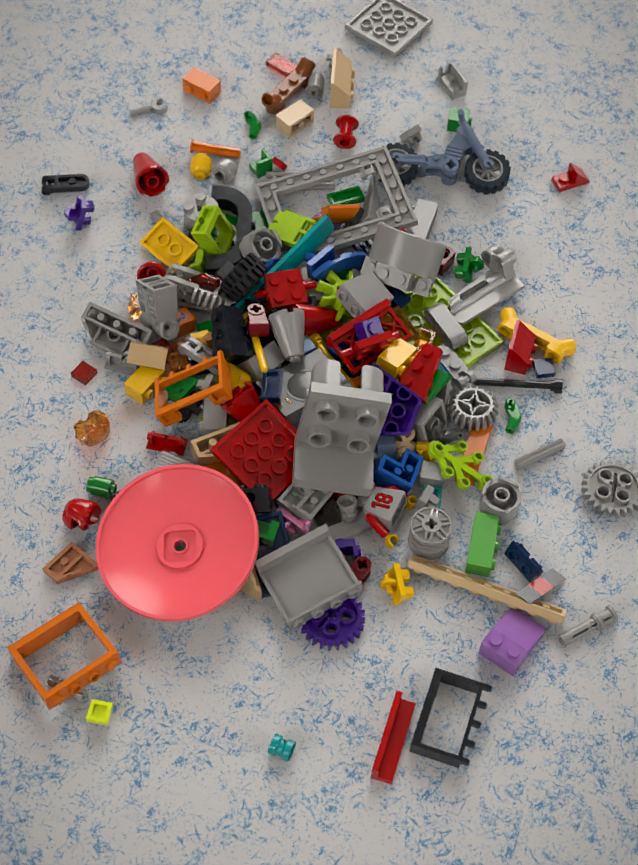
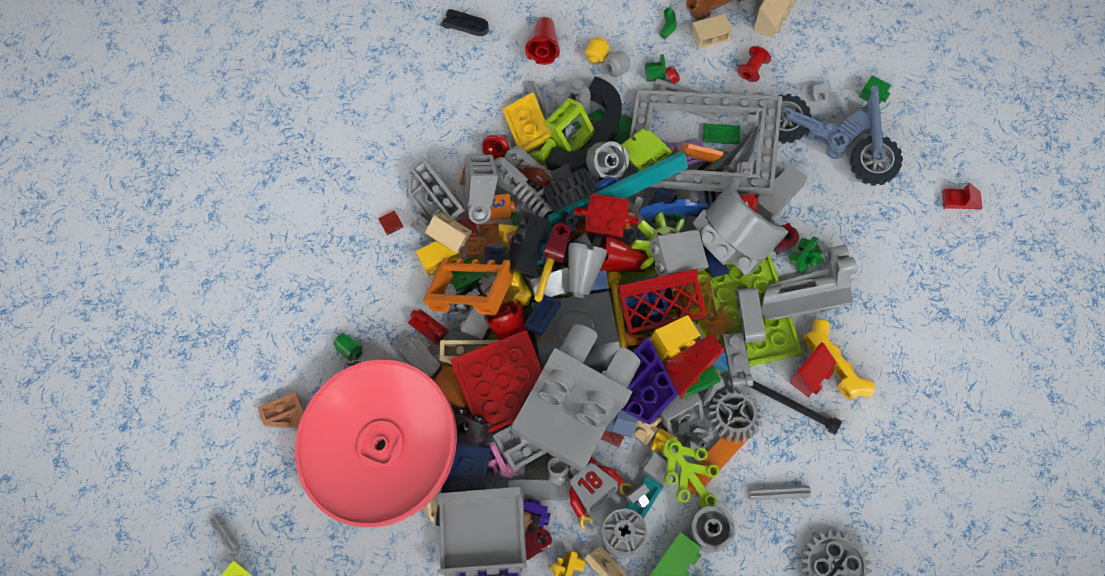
camera: 30 degrees right, 10 degrees up
(49, 632) = (224, 475): orange window -> none
(79, 212) = (463, 59): dark purple hips -> none
(81, 513) = (313, 365): red hair -> none
(94, 429) = (369, 285): clear orange hair -> none
(196, 351) = (497, 249): light grey plate -> none
(214, 149) = (619, 37): orange axle -> none
(268, 532) = (464, 465): green panel -> none
(314, 261) = (653, 195): blue tile -> none
(368, 328) = (660, 296): dark purple brick -> none
(374, 344) = (661, 317): red plate -> none
(398, 473) = (624, 458): blue brick -> none
(452, 81) = (890, 45): light grey hinge -> none
(514, 415) = (774, 439): green arm -> none
(544, 368) = (830, 399): tile -> none

